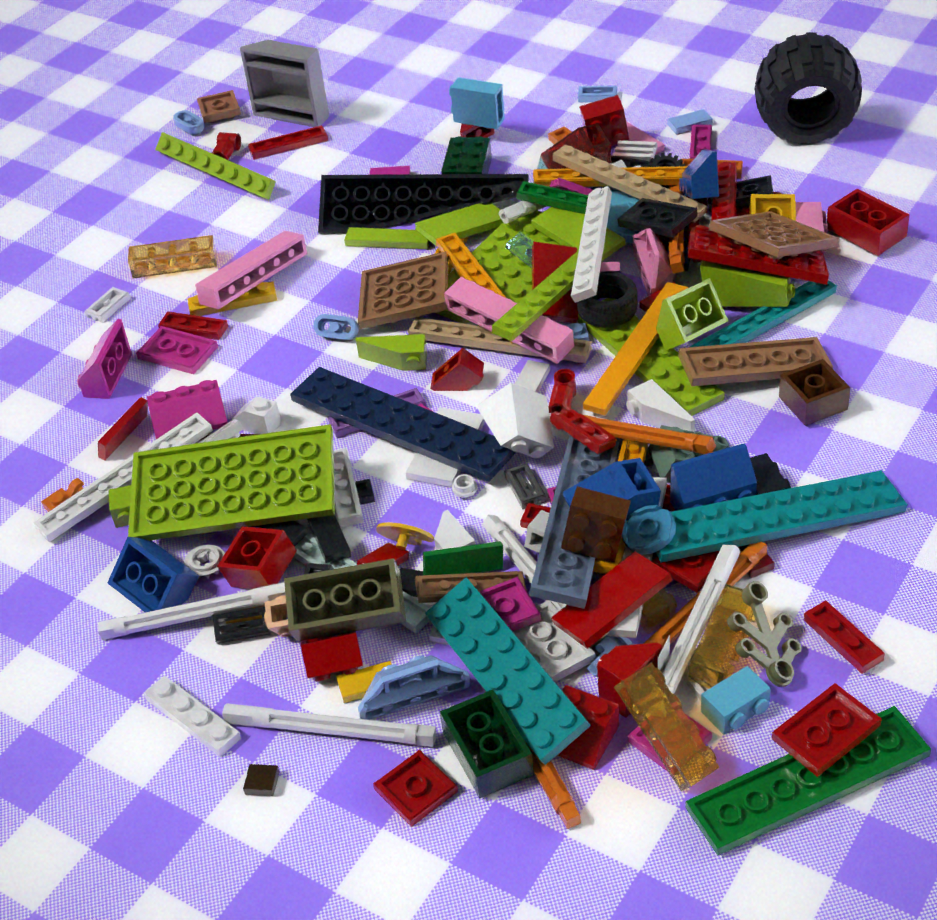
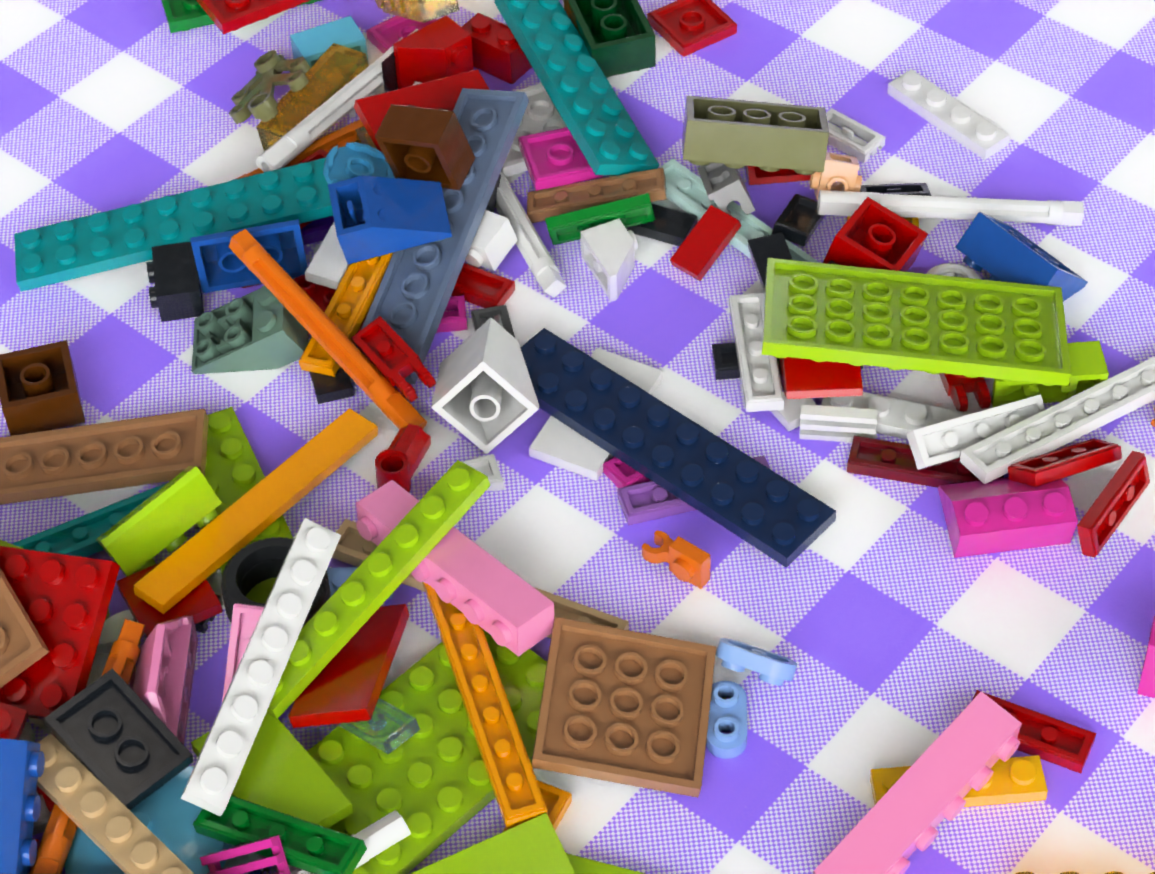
camera: 175 degrees left, 5 degrees up
(150, 432) = (1064, 462): none -> red tile
(177, 350) = (1050, 676): dark pink tile -> none
(259, 416) = (894, 494): white slope -> none
(261, 780) = (860, 44): dark brown tile -> none
(272, 687) = (844, 138): none -> white tile
(343, 726) = (785, 81): white piece -> none
(350, 304) = (726, 716): none -> light blue plate
(379, 367) = (684, 559): none -> orange plate
(395, 351) = (648, 584): lime slope -> none
(403, 534) = (683, 266): yellow piece -> none
(410, 685) = (659, 82): light blue wedge -> none
(458, 373) = (558, 521): red slope -> none
(464, 486) = (583, 338): white plate -> none
(657, 408) = (271, 412): white slope -> none
(844, 636) = (181, 99): red plate -> none

